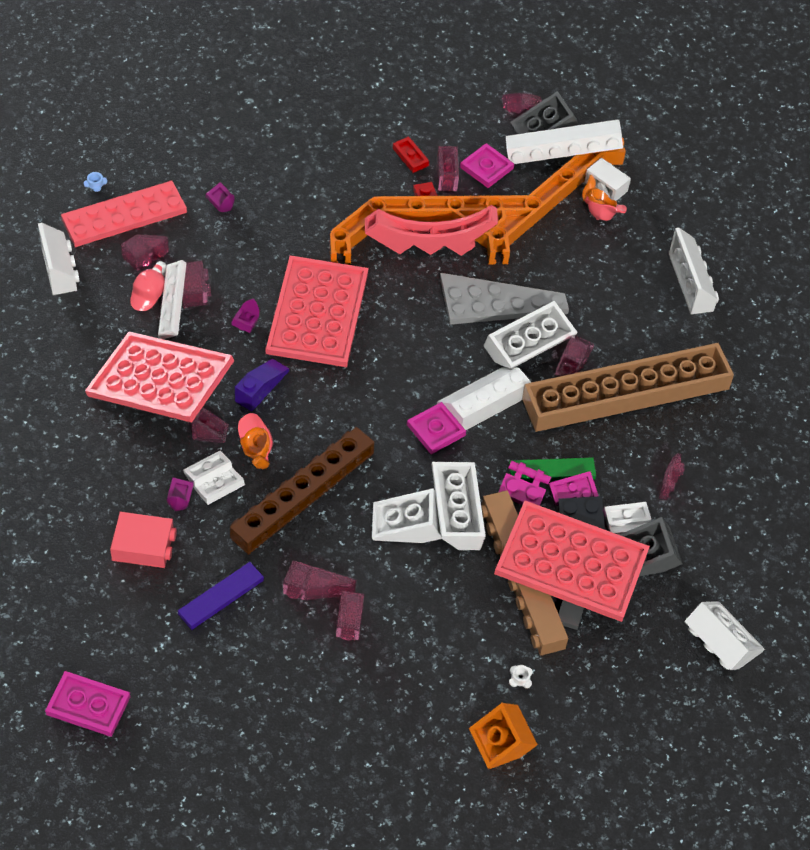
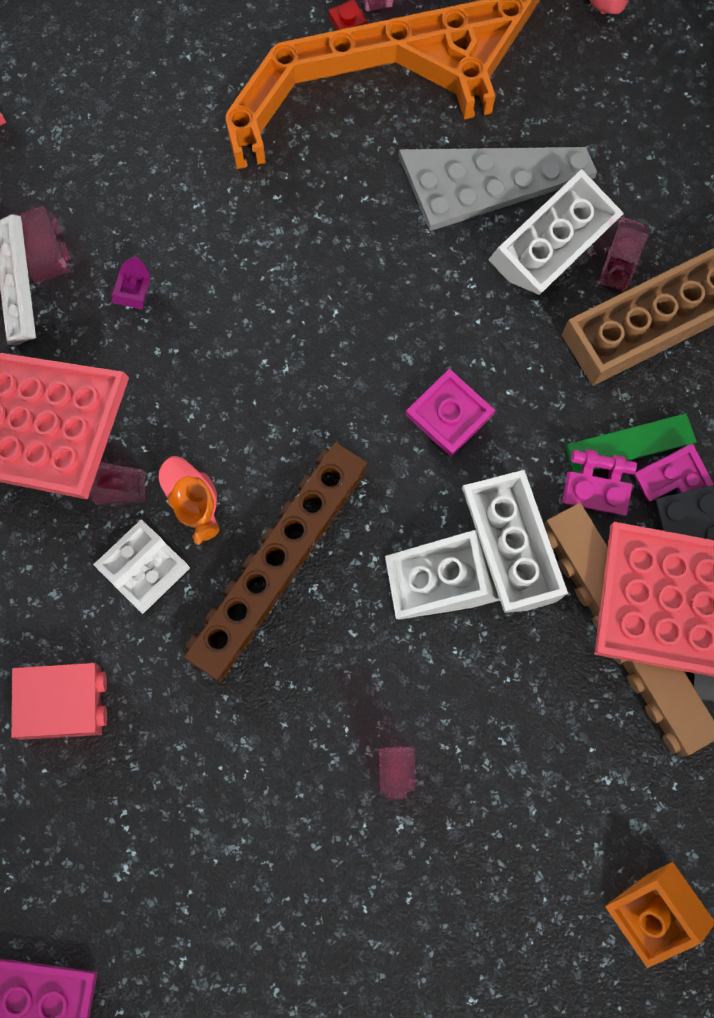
camera: 10 degrees left, 20 degrees up
(179, 494) = (96, 609): magenta plate -> none
(220, 595) = (194, 767): dark purple tile -> none
(221, 198) = (50, 89): magenta plate -> none
(259, 383) = (175, 392): dark purple slope -> none
(314, 583) = (323, 718): clear pink slope -> none
(317, 311) = (234, 252): coral plate -> none
(430, 236) = (374, 93): coral arch -> none
(486, 396) = (509, 342): white slope -> none
(520, 670) = (668, 796): white plate -> none

